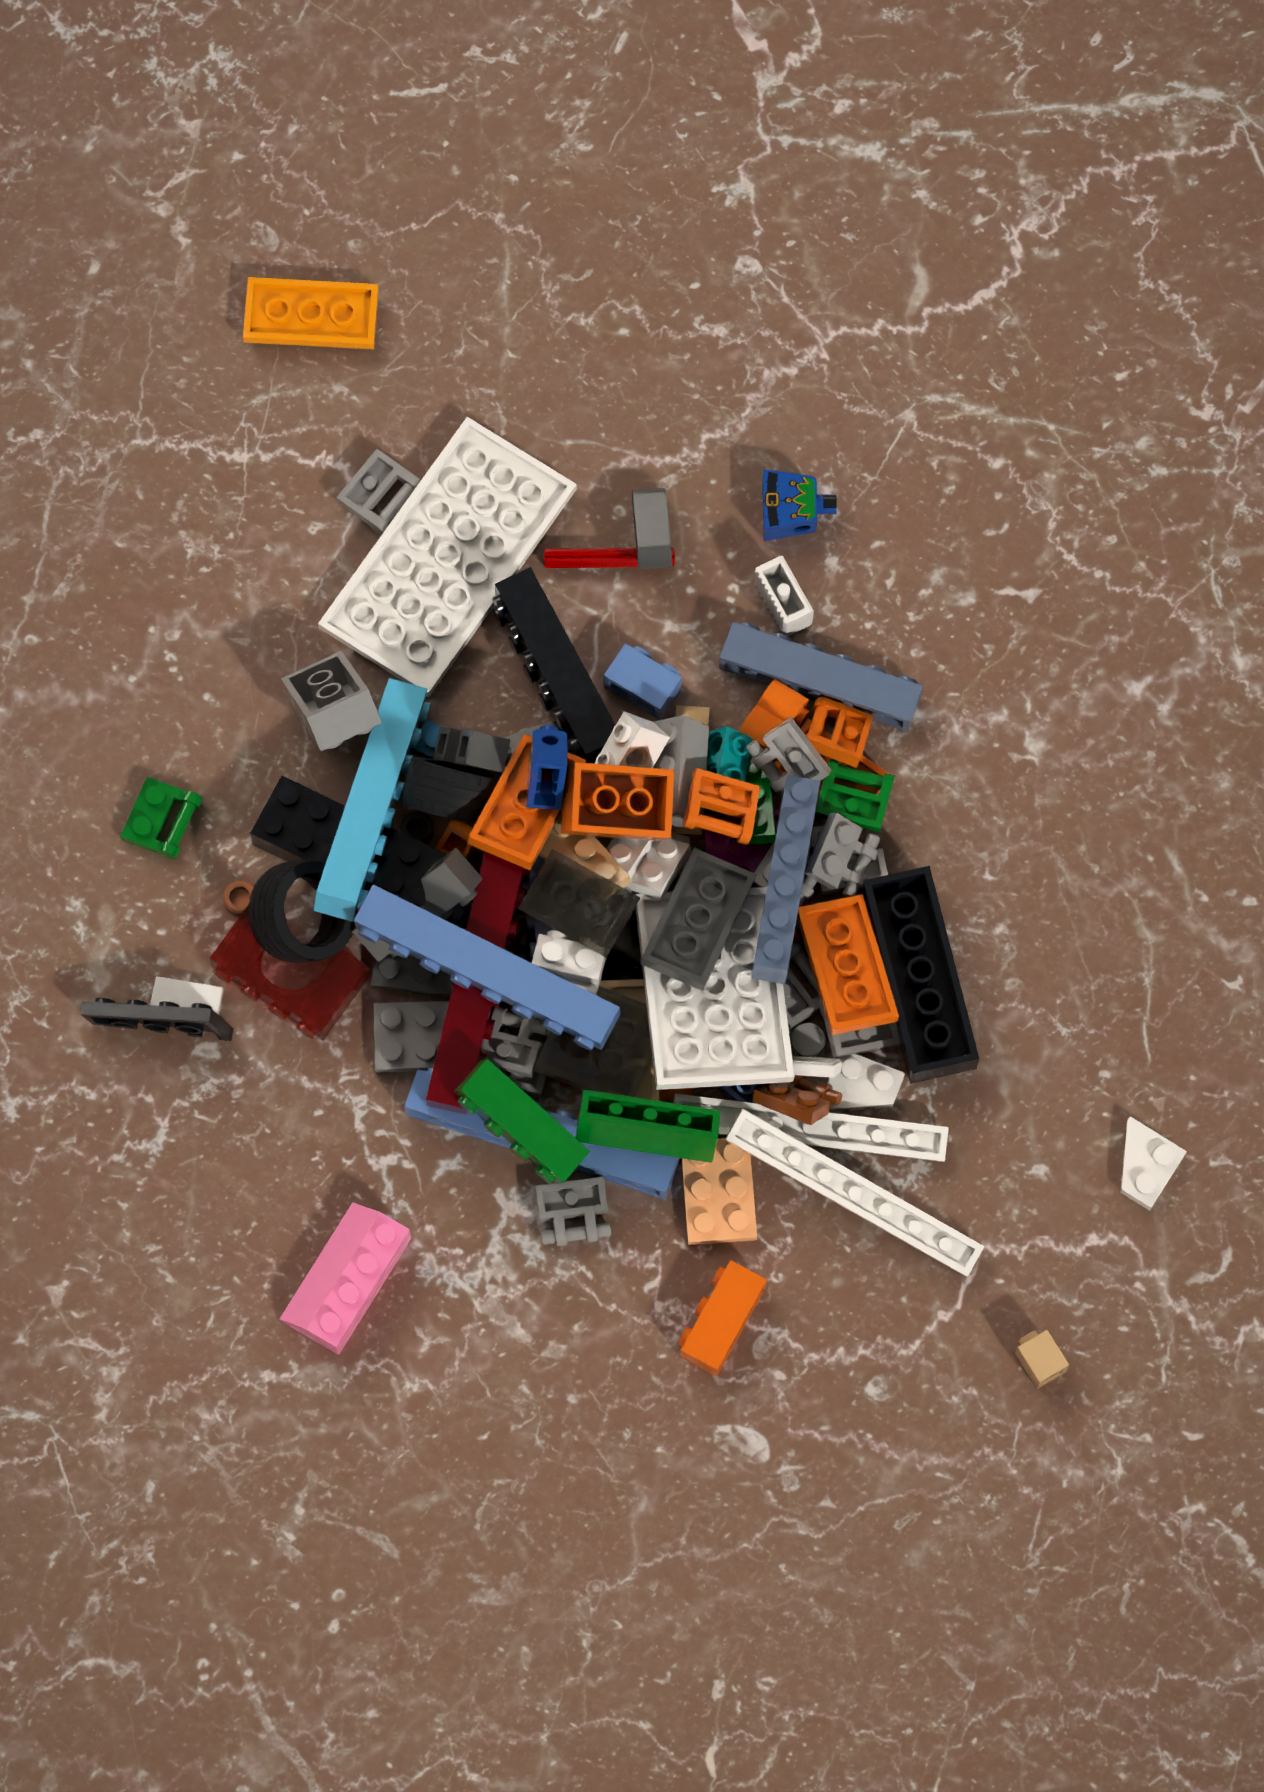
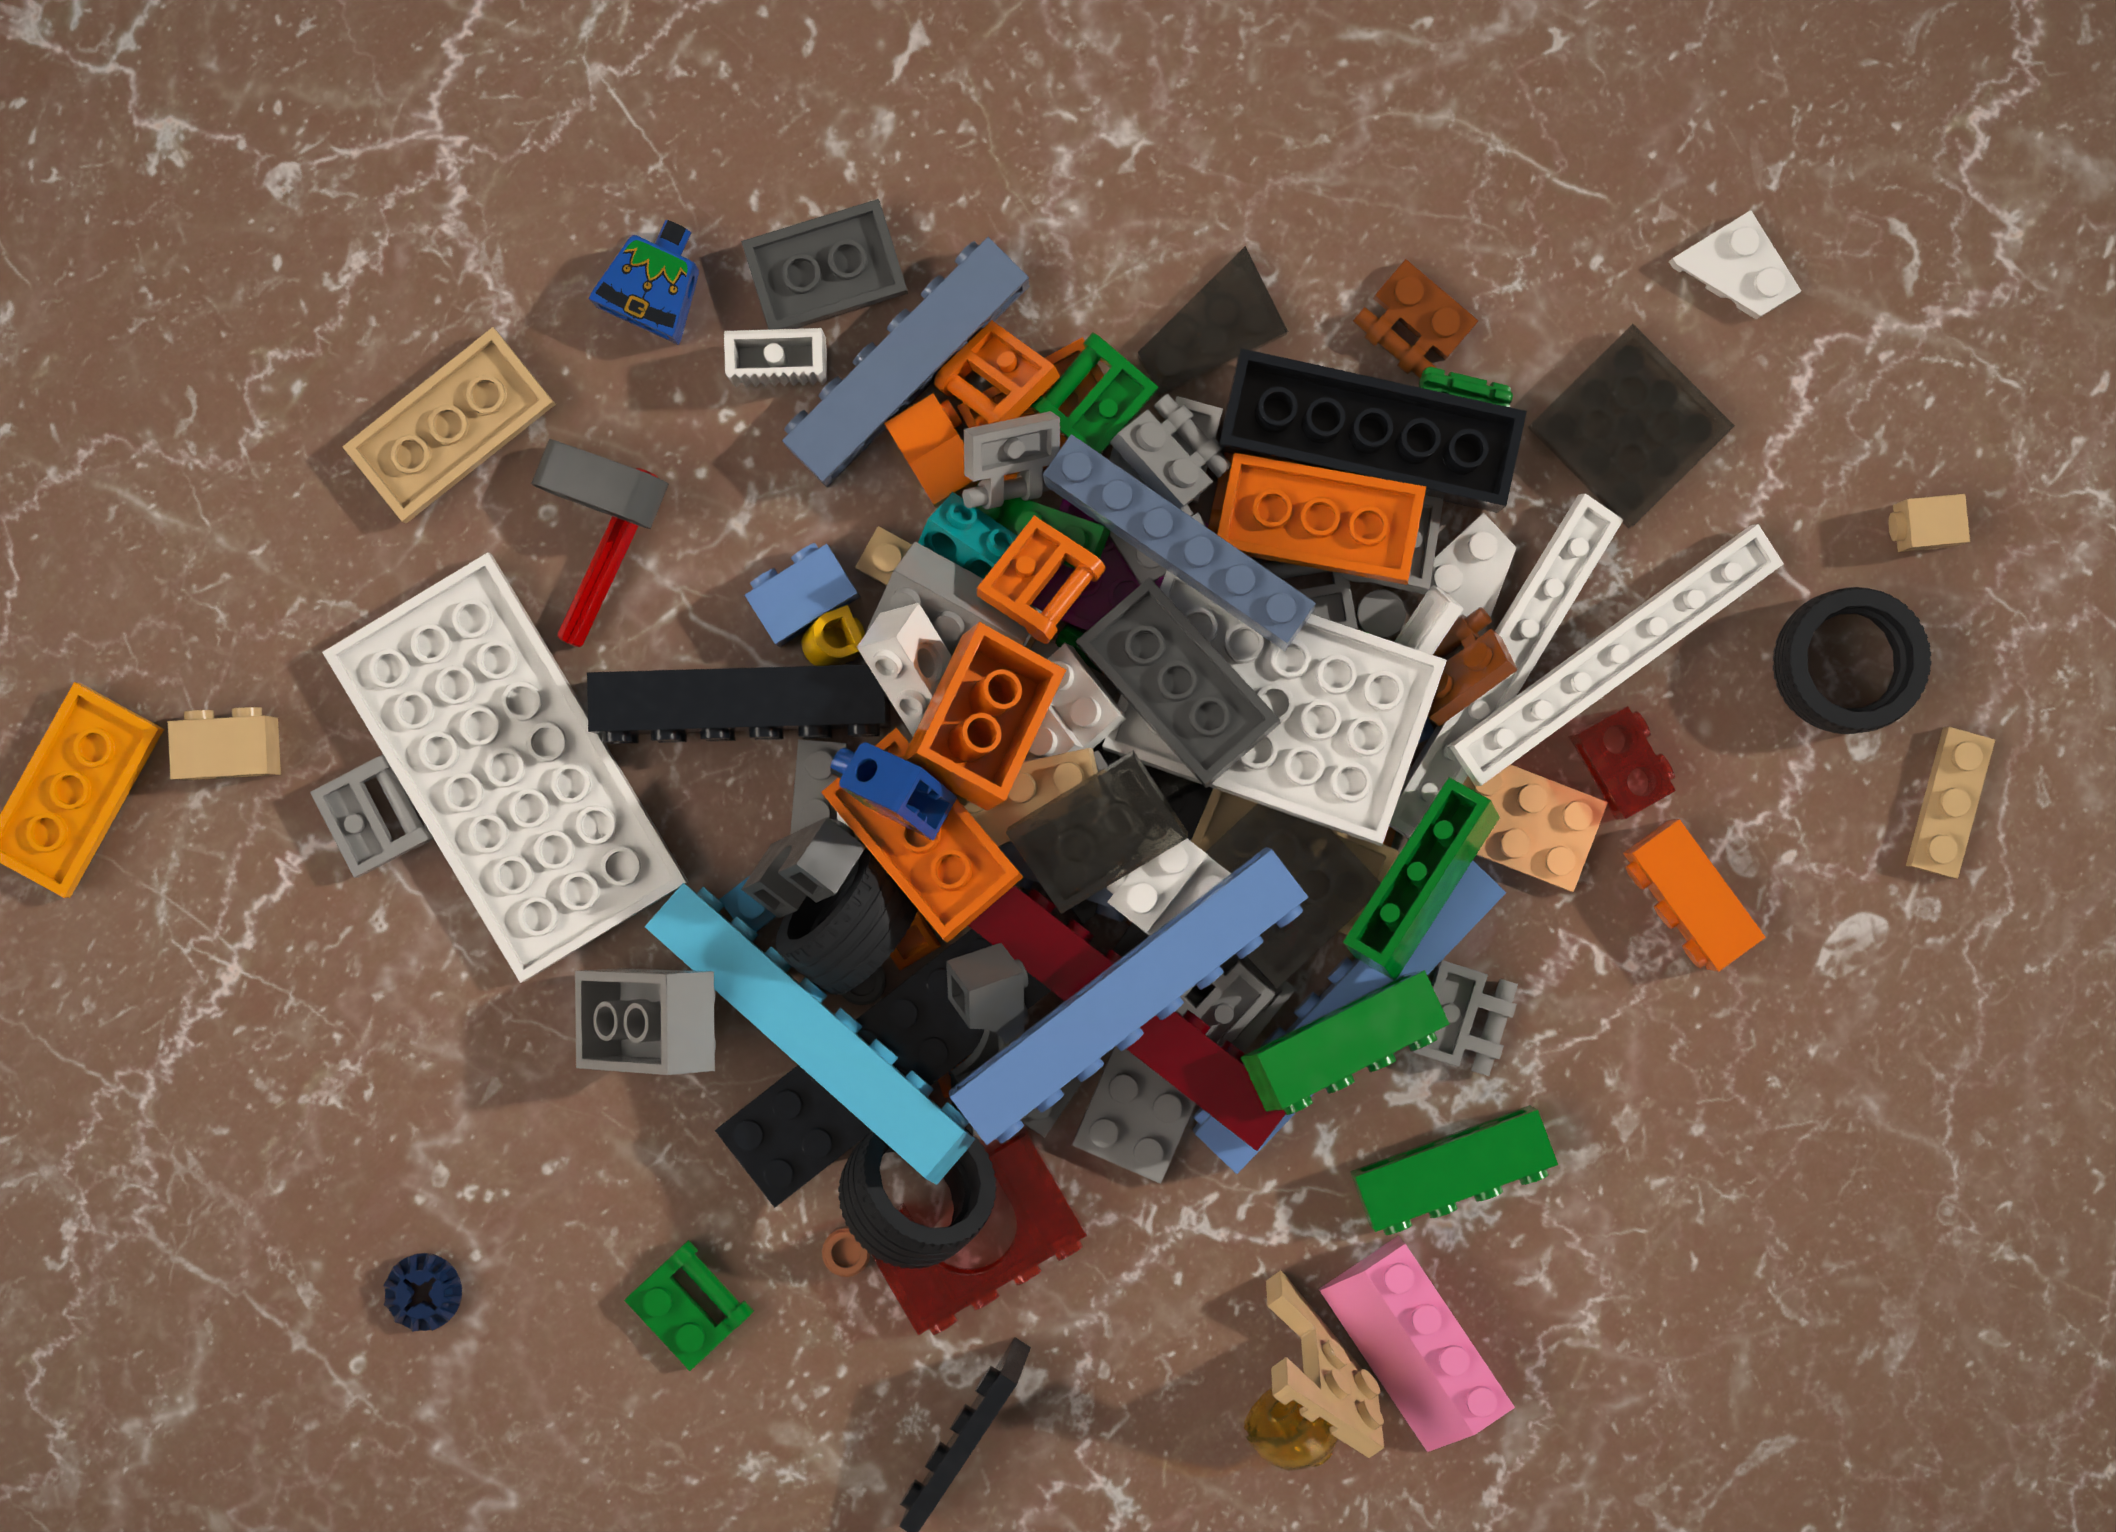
camera: 65 degrees left, 15 degrees up
(102, 668) = (445, 1292): none -> dark blue gear
(186, 993) = (950, 1382): white tile -> none
(259, 1222) = (1286, 1436): none -> clear yellow cylinder
(301, 1222) = (1332, 1379): none -> tan wing
(380, 387) = (224, 746): none -> tan brick
(471, 1246) = (1454, 1169): none -> green brick
(625, 702) = (833, 638): none -> yellow plate
(644, 427) = (449, 425): none -> tan plate
(781, 1230) = (1612, 770): none -> clear red brick
(856, 602) = (825, 266): none -> dark grey plate
(866, 1461) = (1950, 802): none -> tan plate
(935, 1305) = (1904, 635): none -> black tyre
(952, 857) = (1213, 327): none -> clear smoke wing
(979, 1024) = (1465, 386): none -> green axle
(1007, 1140) = (1631, 426): none -> clear smoke plate
(1017, 978) = (1422, 309): none -> dark orange plate

